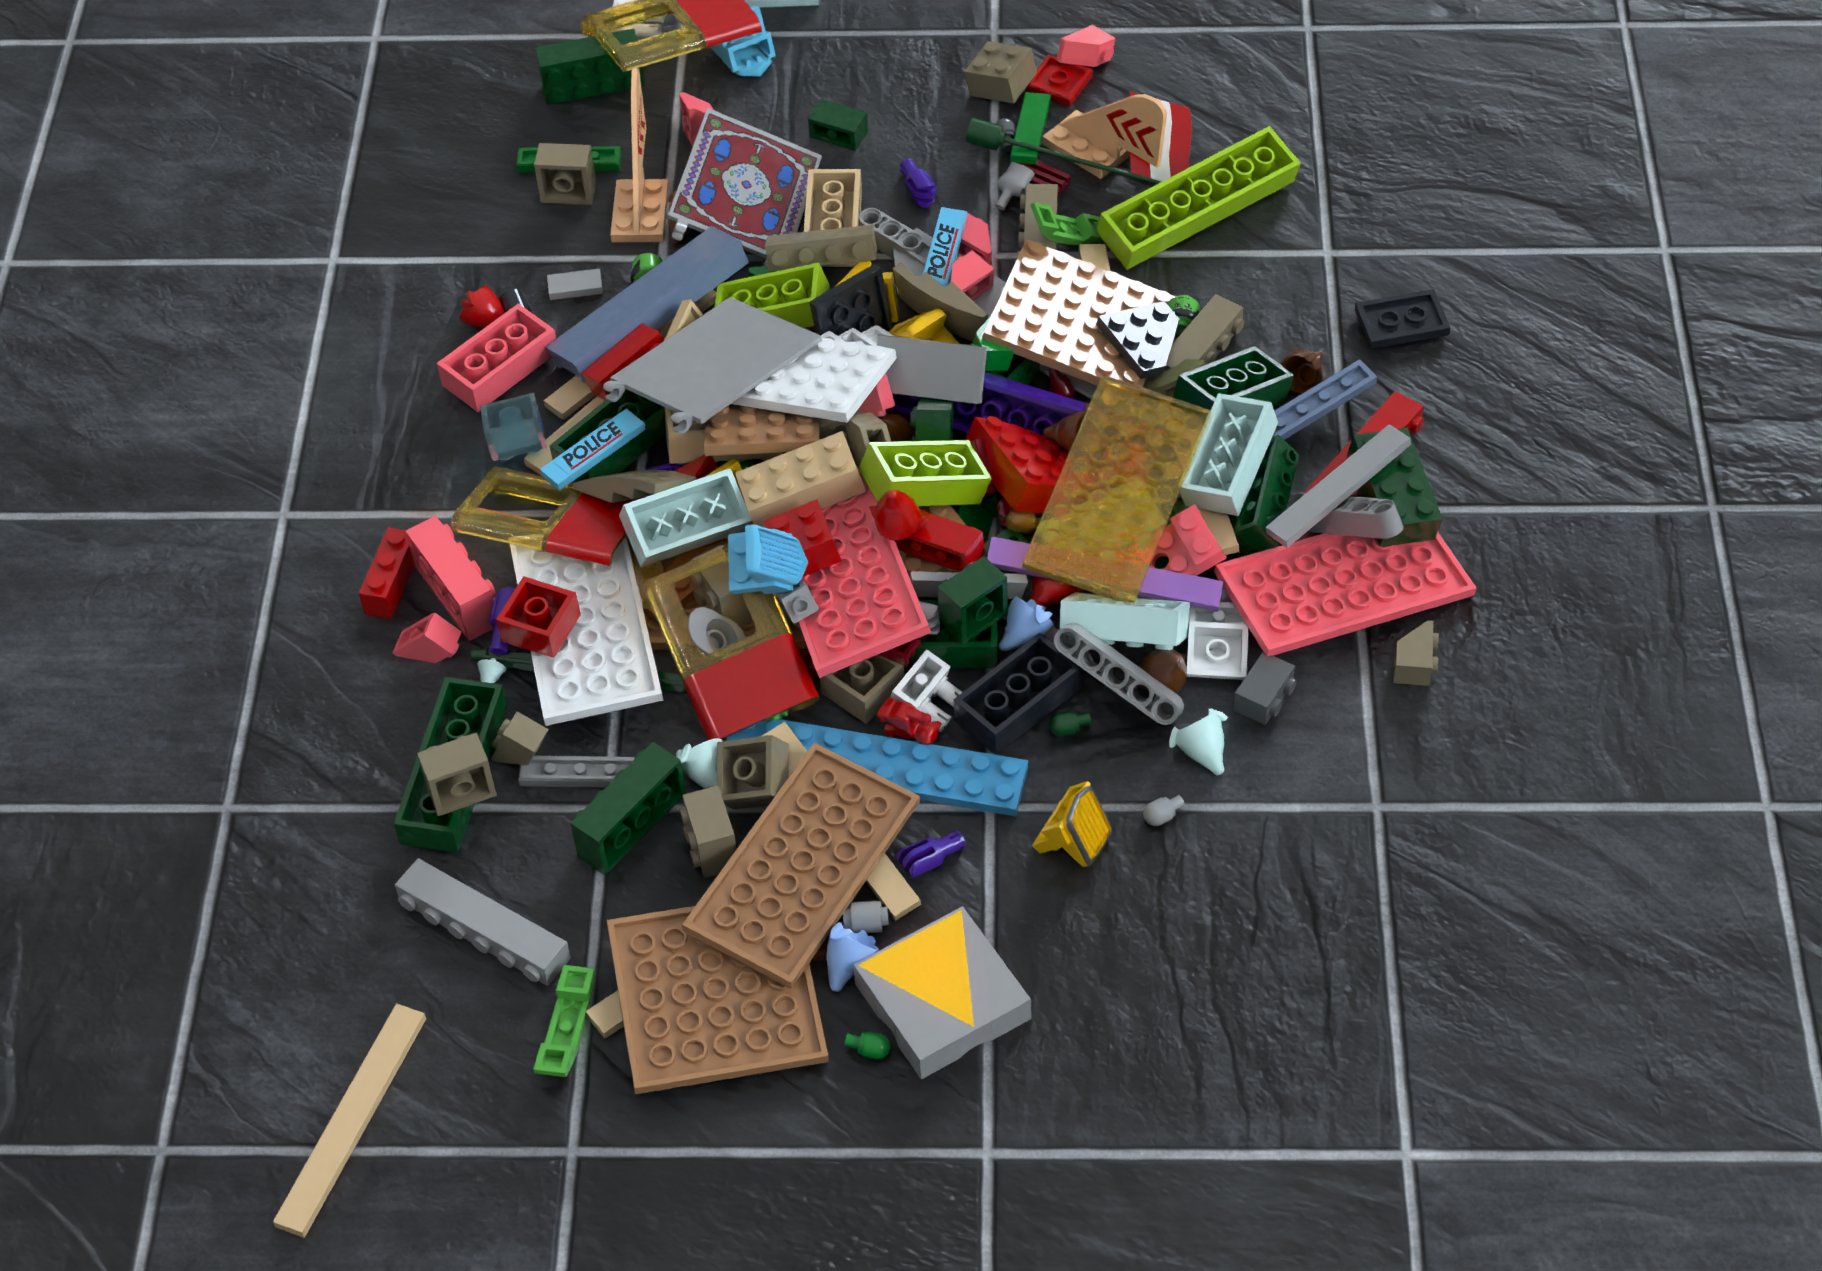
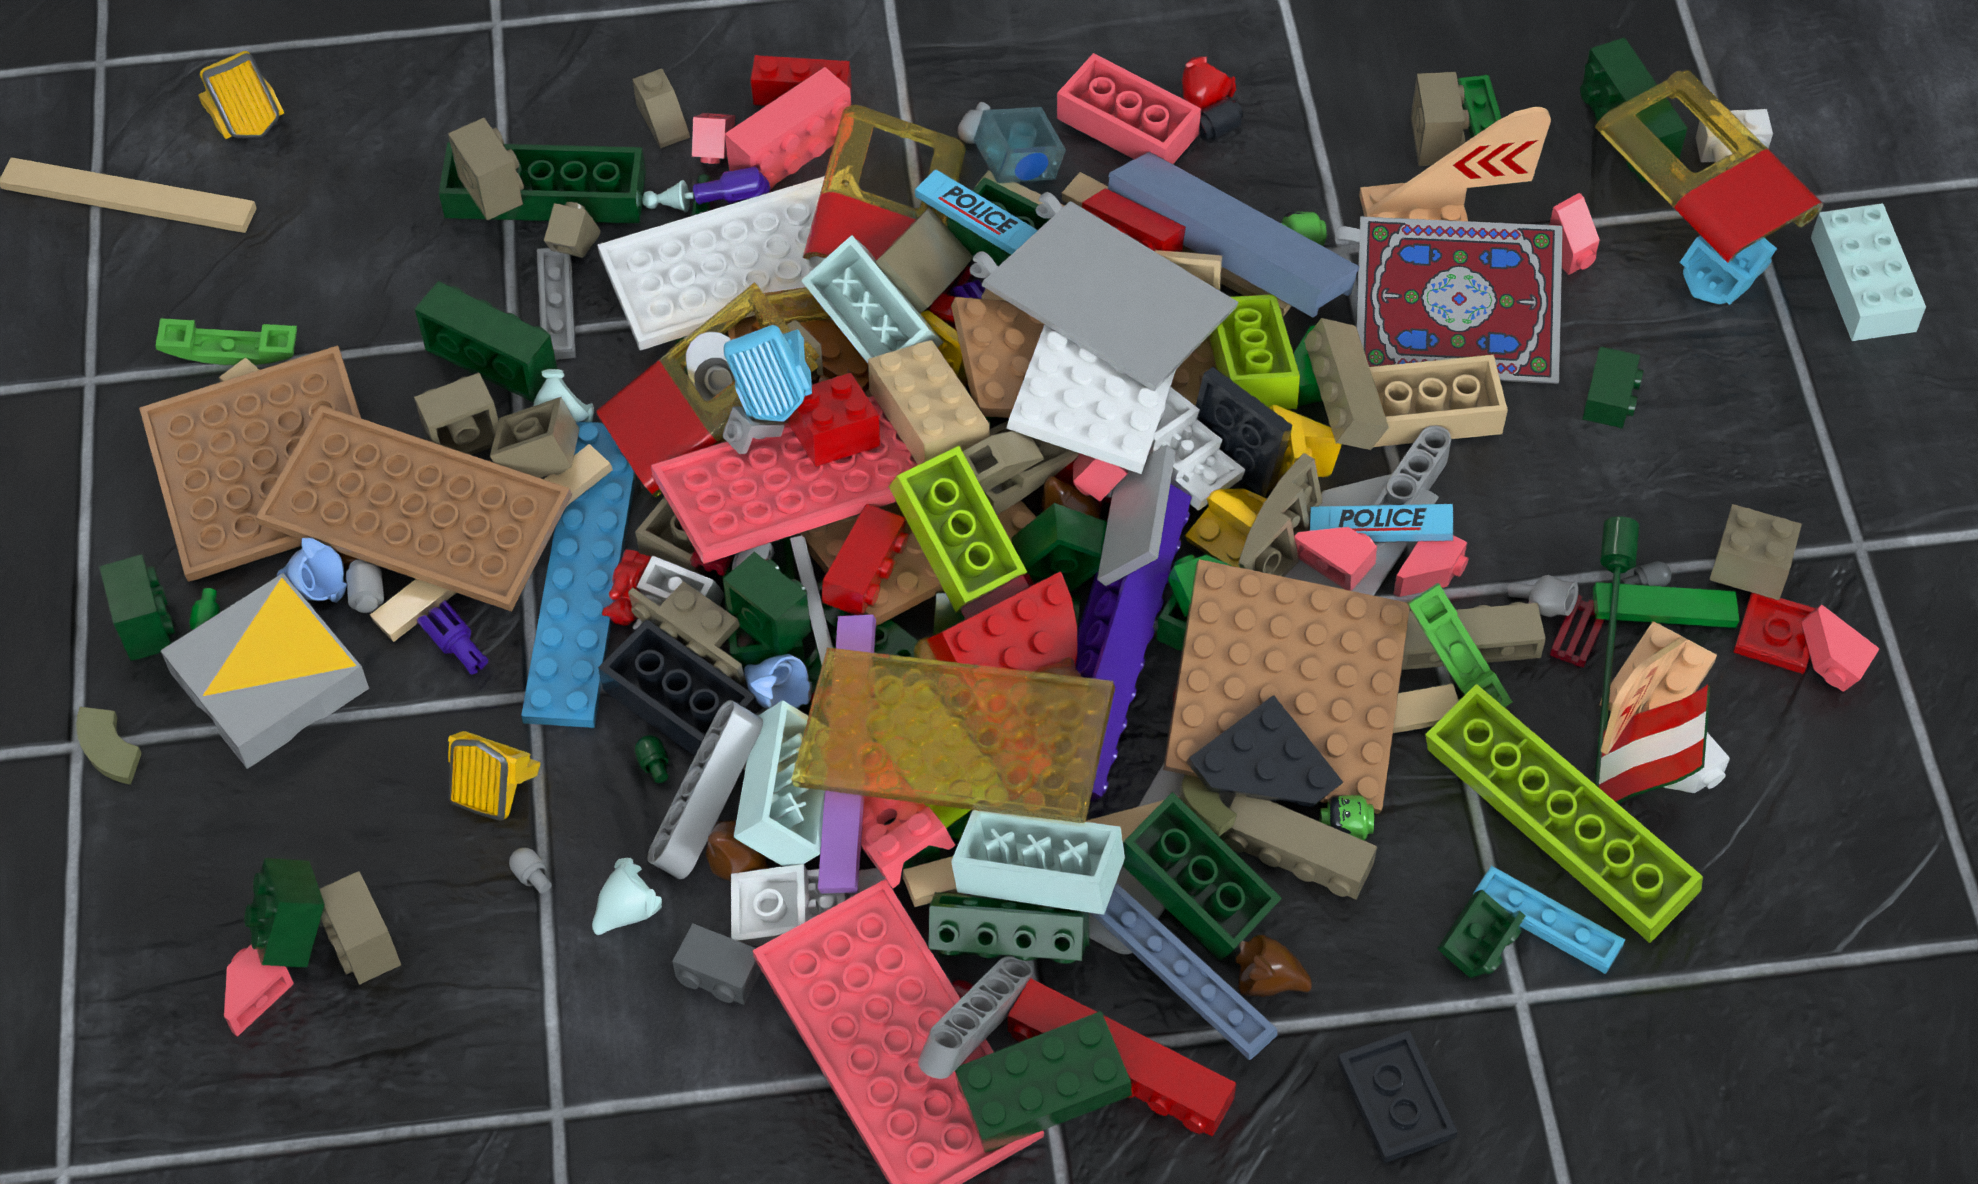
camera: 80 degrees right, 5 degrees up
(268, 1010) = (239, 97): none -> yellow piece
(384, 677) = (660, 108): none -> dark tan slope
(468, 464) = (970, 122): none -> light grey cylinder
(482, 922) = (350, 251): light grey brick -> none
(538, 617) = (715, 204): red brick -> none
(574, 284) = (1275, 170): light grey tile -> none
(866, 1083) = (137, 606): none -> dark green brick
(897, 515) = (867, 499): red hat -> none
(918, 183) = (1526, 489): dark purple arm -> none
(964, 666) = (694, 623): none -> dark tan bracket
(995, 1126) = (104, 747): none -> olive tile
(1205, 955) = (284, 912): none -> dark green brick
(1215, 916) = (357, 929): none -> dark tan brick
(1253, 1004) = (251, 988): none -> coral slope
(1270, 228) = (1553, 921): none -> medium azure tile
(1286, 256) = (1480, 935): none -> dark green bracket
(1338, 486) = (1003, 996): light grey tile -> none
(1415, 657) = (787, 1140): dark tan slope -> none

